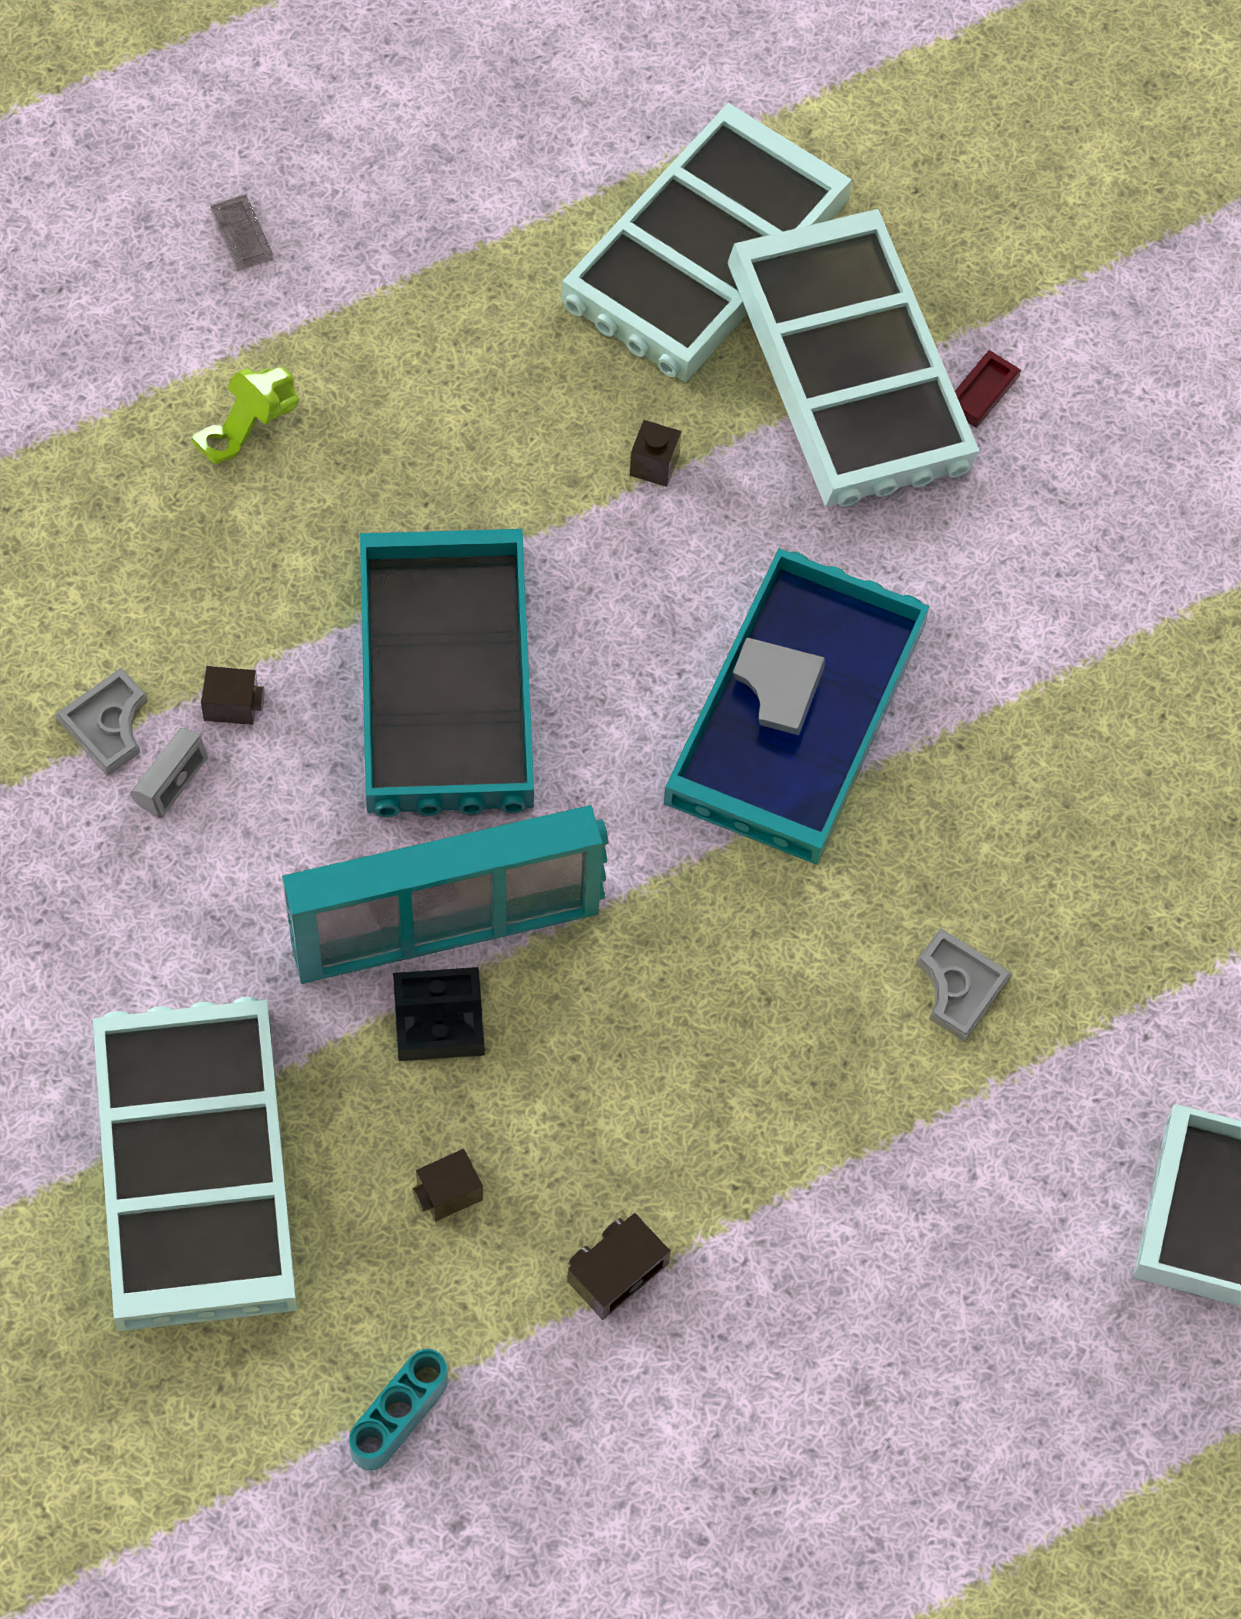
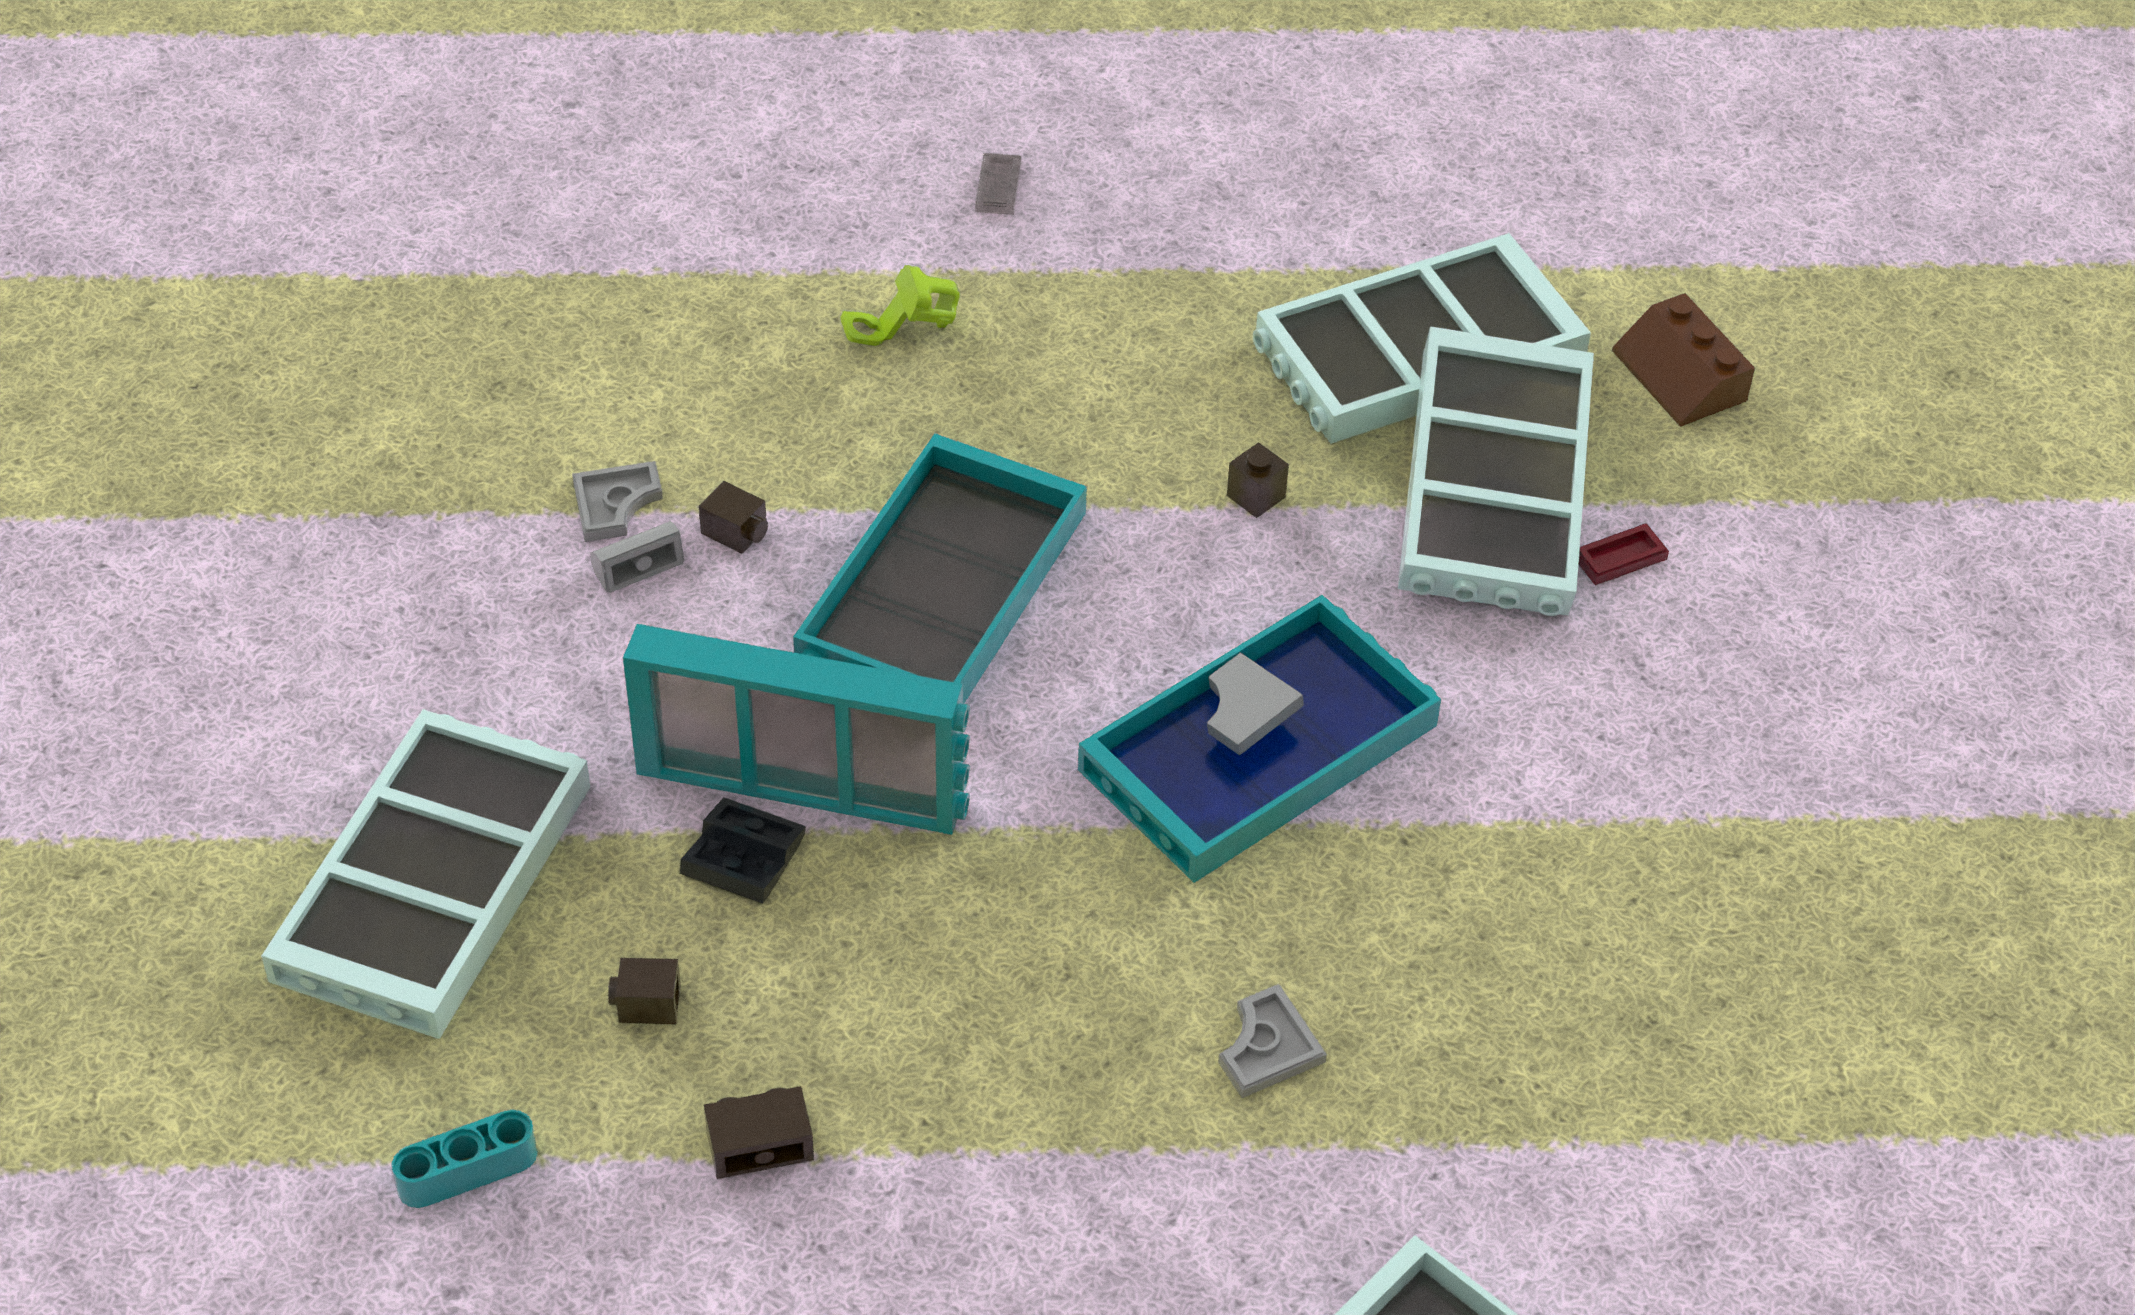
camera: 30 degrees right, 15 degrees down
(936, 170) = (1685, 361): none -> reddish brown slope

